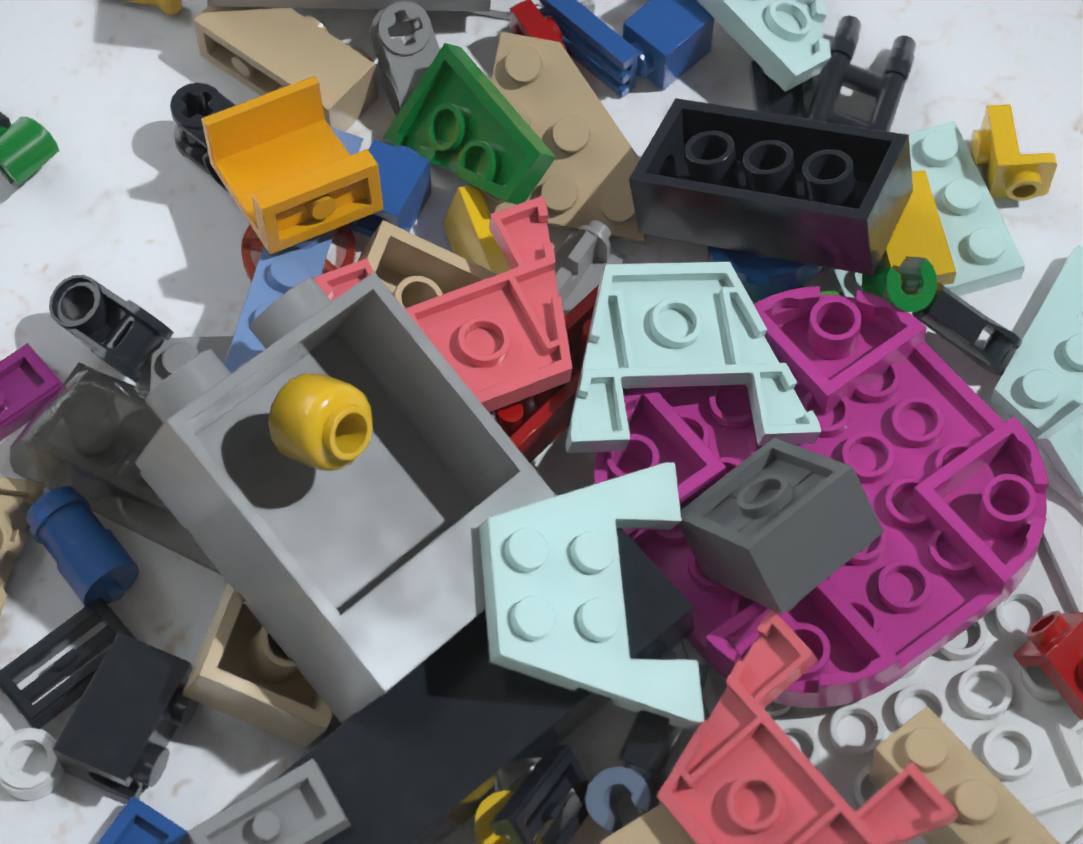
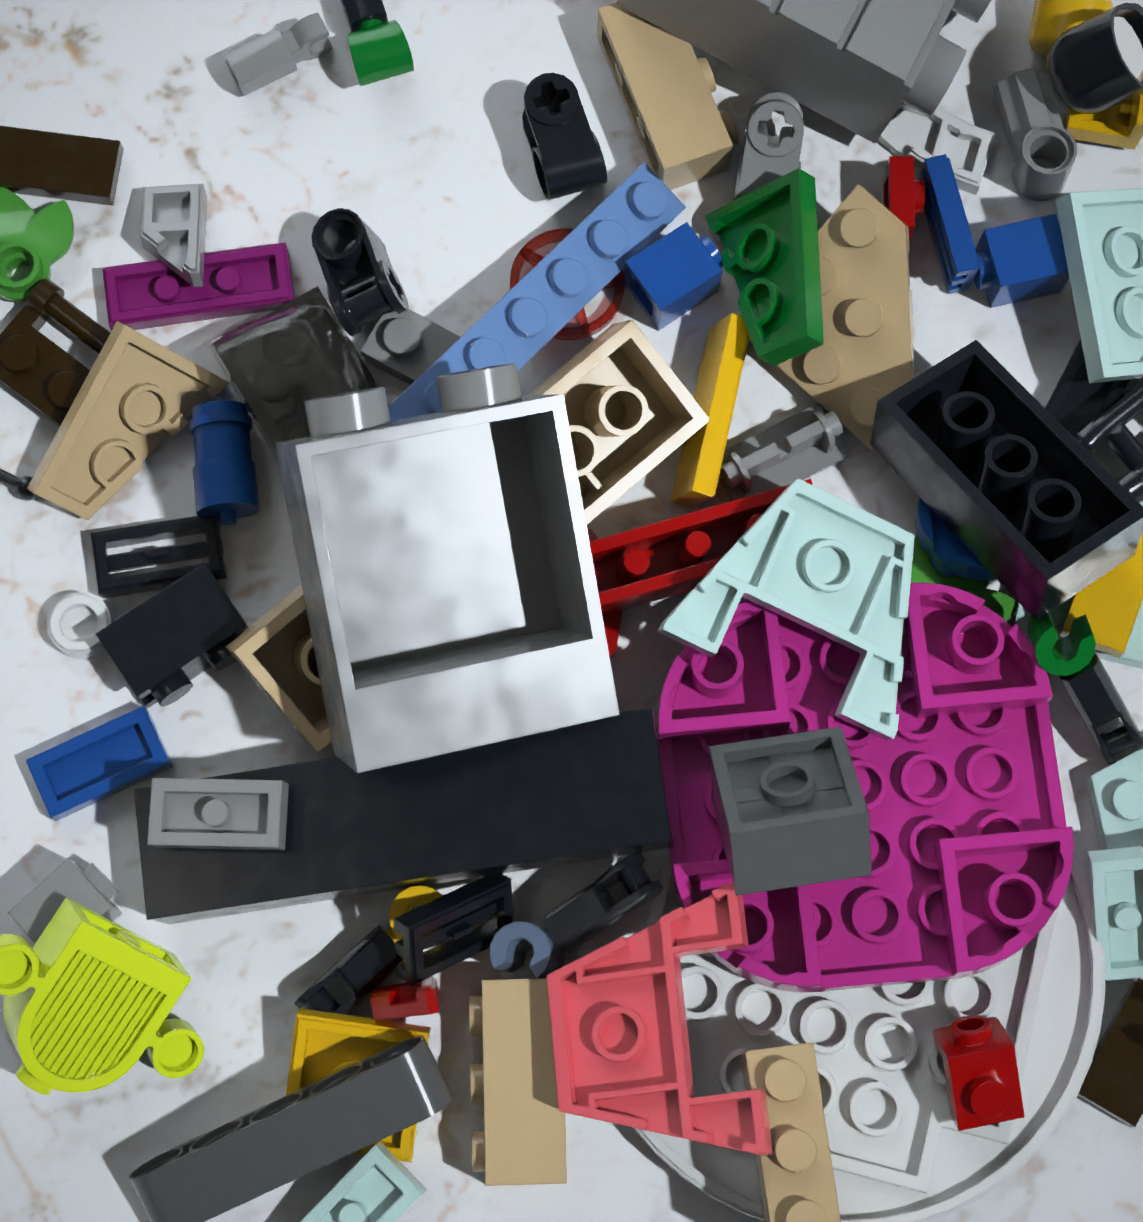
camera: 30 degrees right, 15 degrees up
(290, 166) = (591, 214): light orange panel -> none
(320, 421) = (441, 503): yellow head -> none
(500, 332) = (657, 488): coral wing -> none
(560, 594) = (561, 765): light aqua wing -> none

